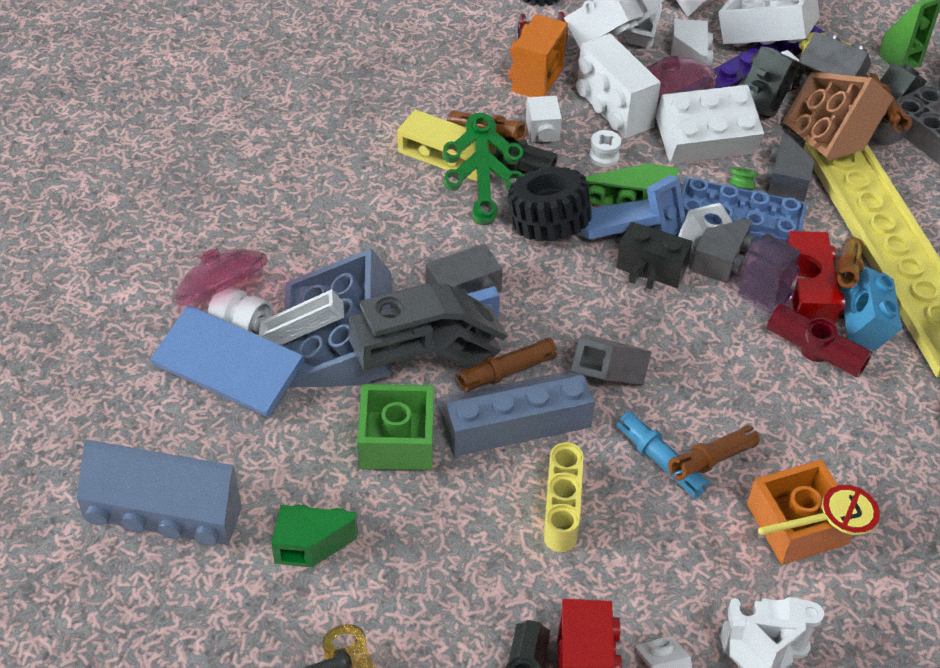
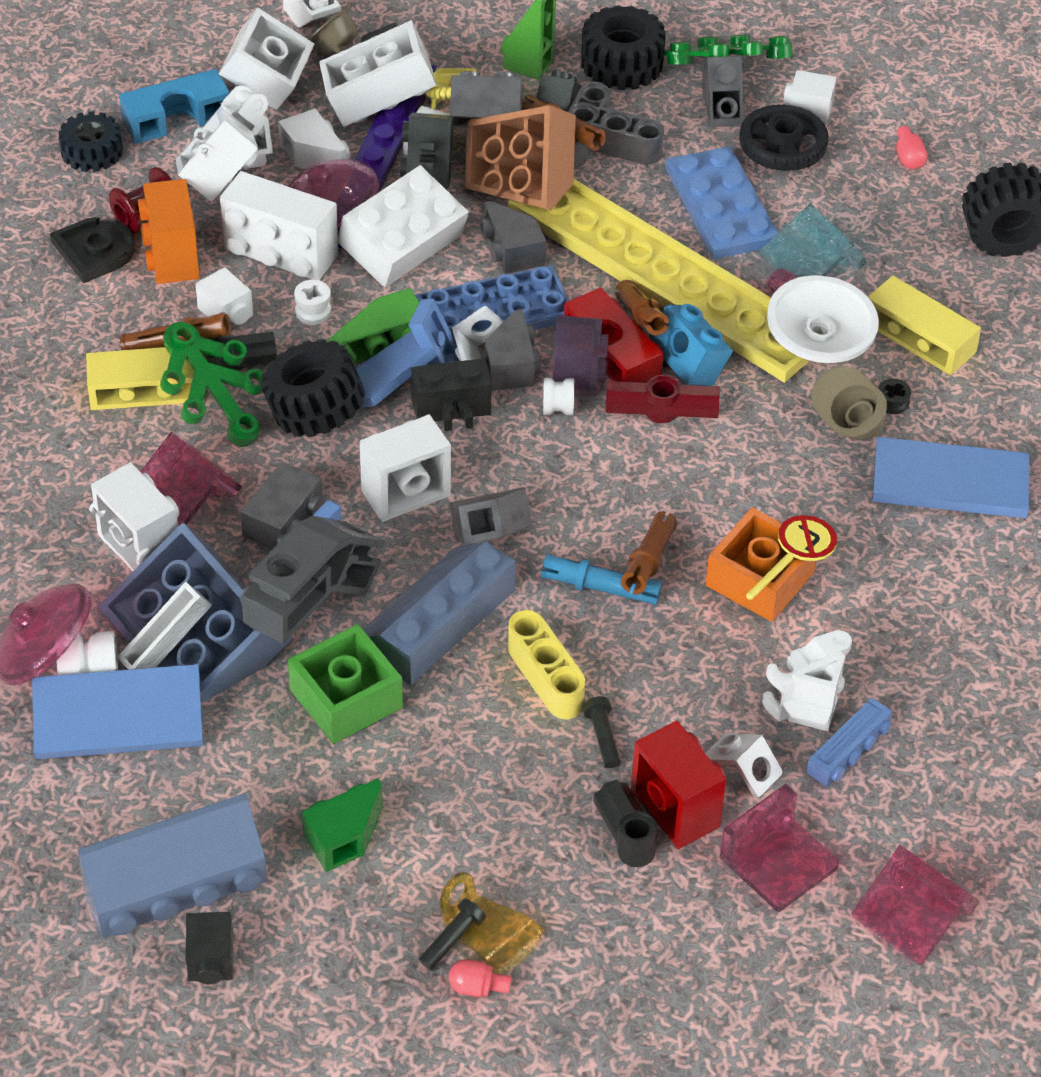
camera: 35 degrees left, 0 degrees up
(136, 570) = (209, 947): none -> pearl dark grey brick
(348, 223) = (132, 514): none -> white brick
(410, 221) = (187, 476): none -> clear pink bracket
(487, 49) = (94, 246): none -> pearl dark grey tile
(496, 368) = (386, 582): dark orange pin -> none
(569, 291) = (405, 467): none -> white brick
(577, 557) = (598, 710): none -> pearl dark grey piece
(735, 298) = (558, 396): none -> white wheel
(743, 177) = (473, 268): bright green bush -> none

